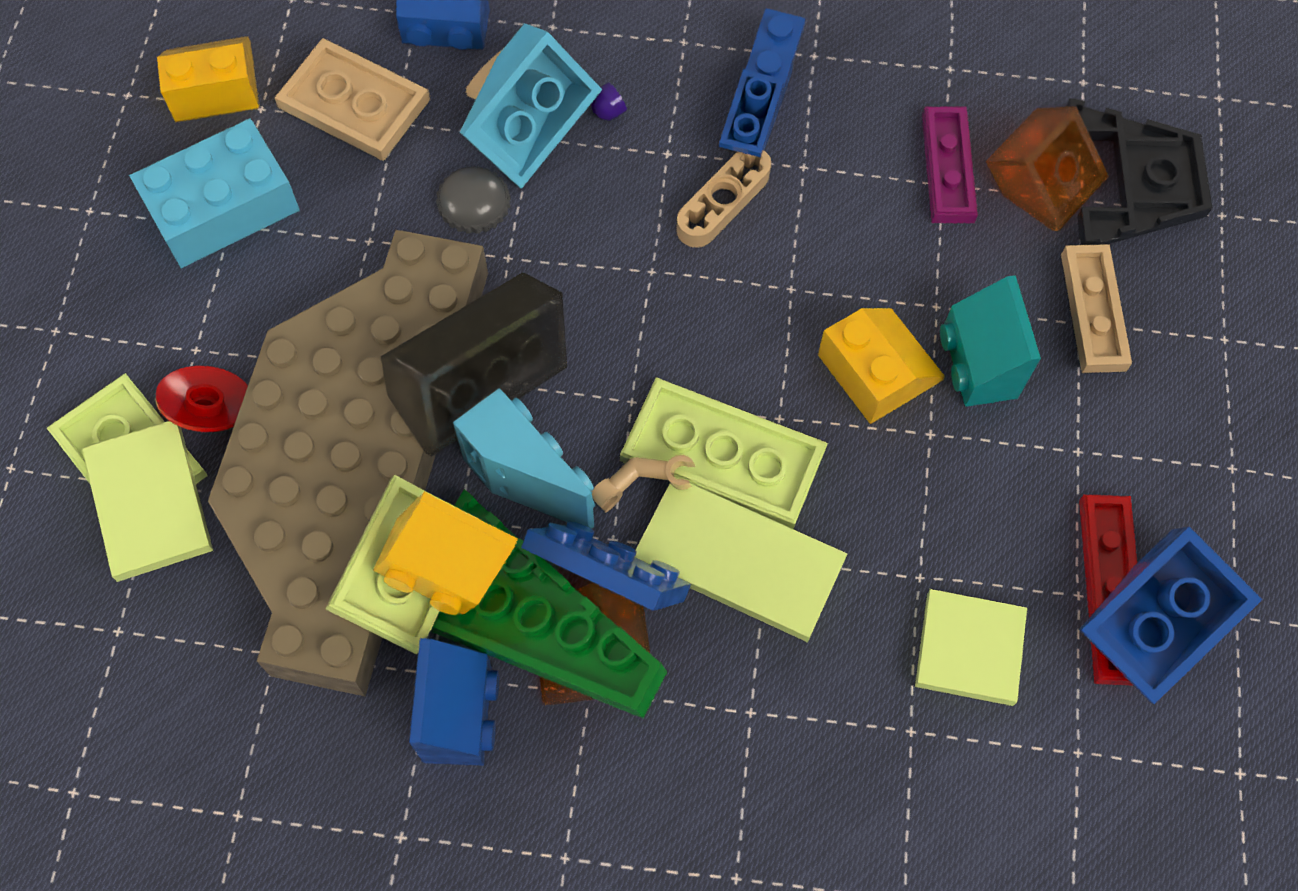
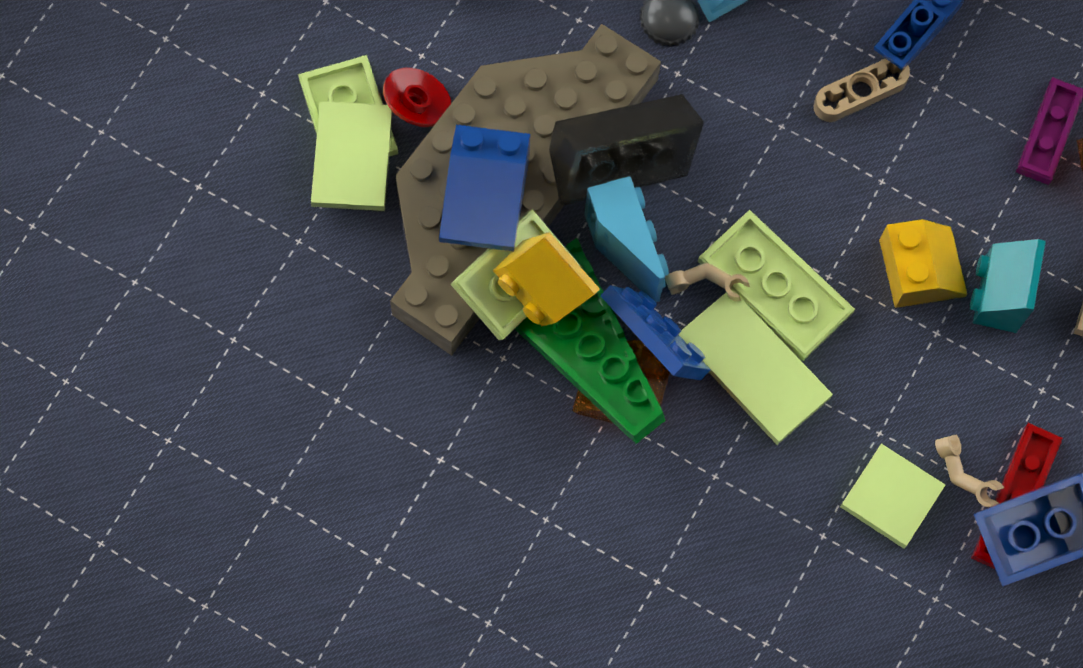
camera: 20 degrees right, 5 degrees up
(323, 471) = (485, 187): none -> blue slope
(452, 704) = (511, 384): blue slope -> none
(1012, 564) = (950, 449): none -> tan arm

